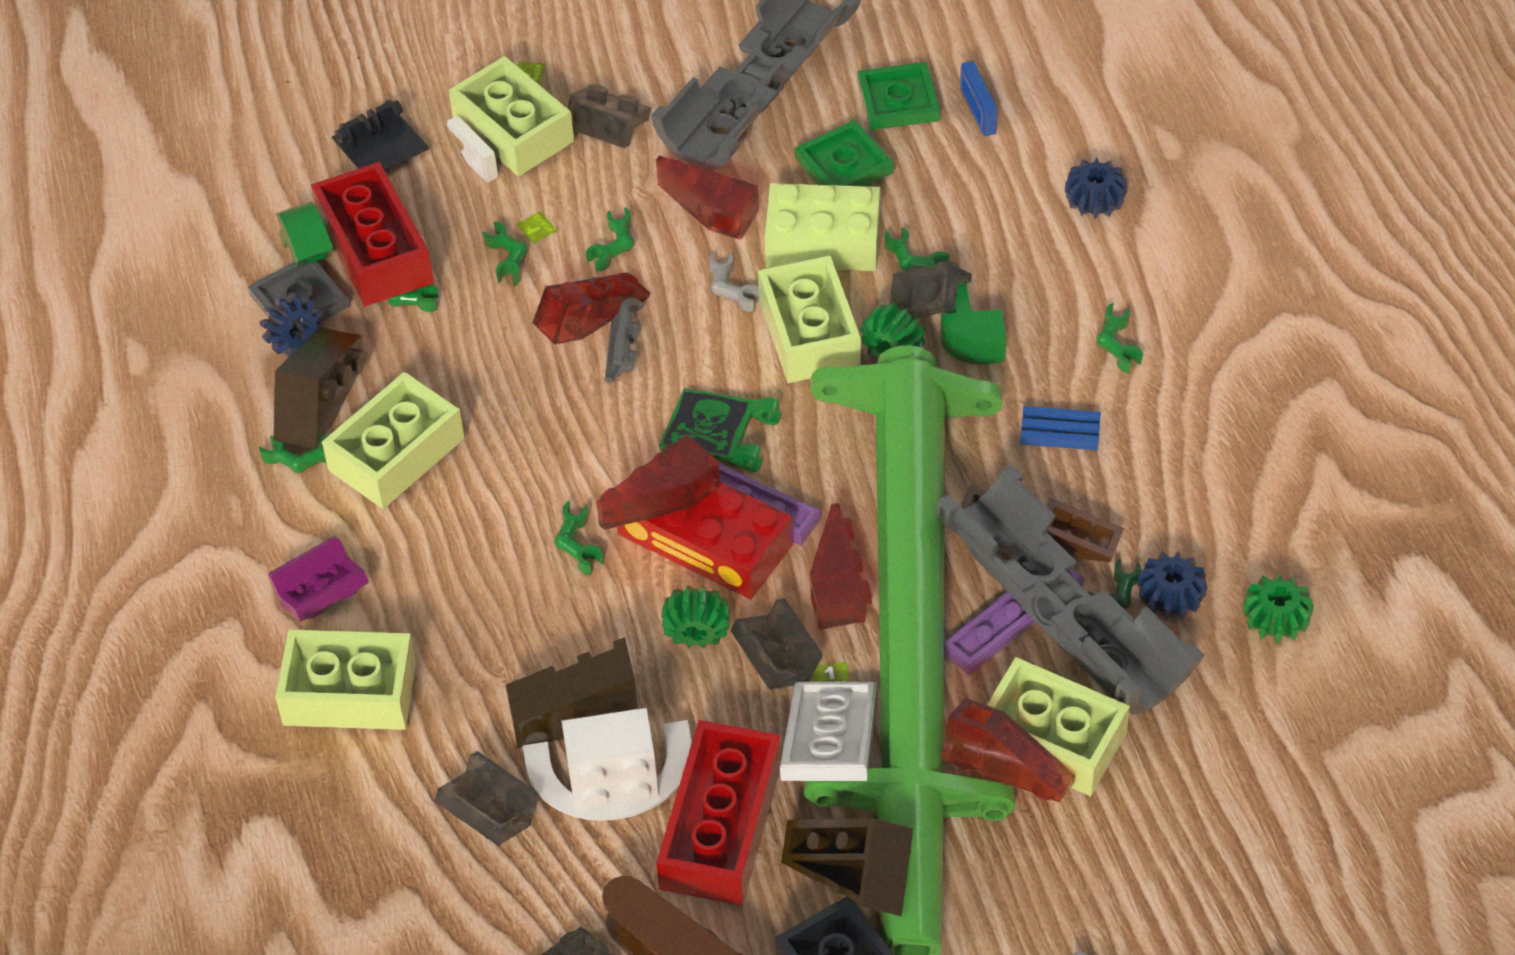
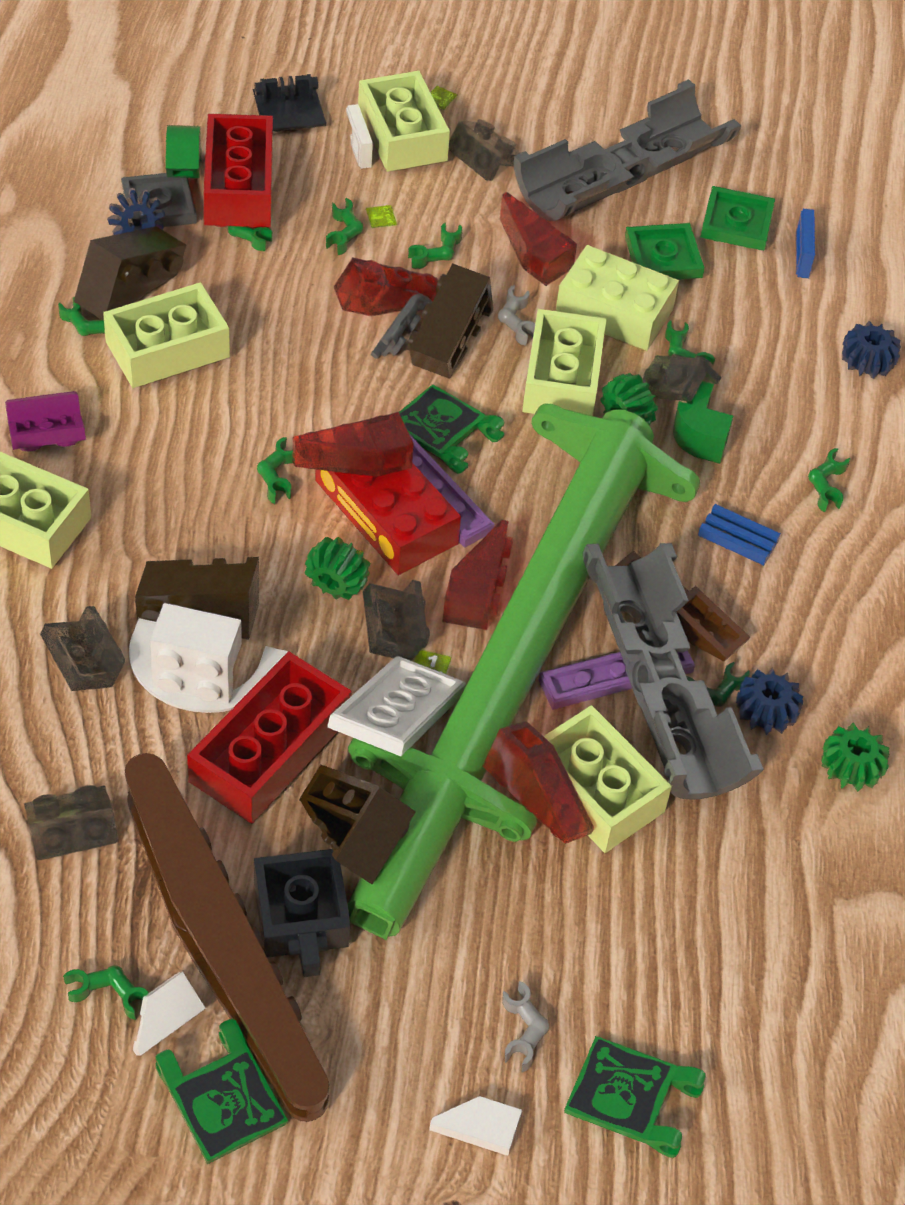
camera: 15 degrees right, 0 degrees up
(672, 315) = (451, 320): none -> dark brown wedge

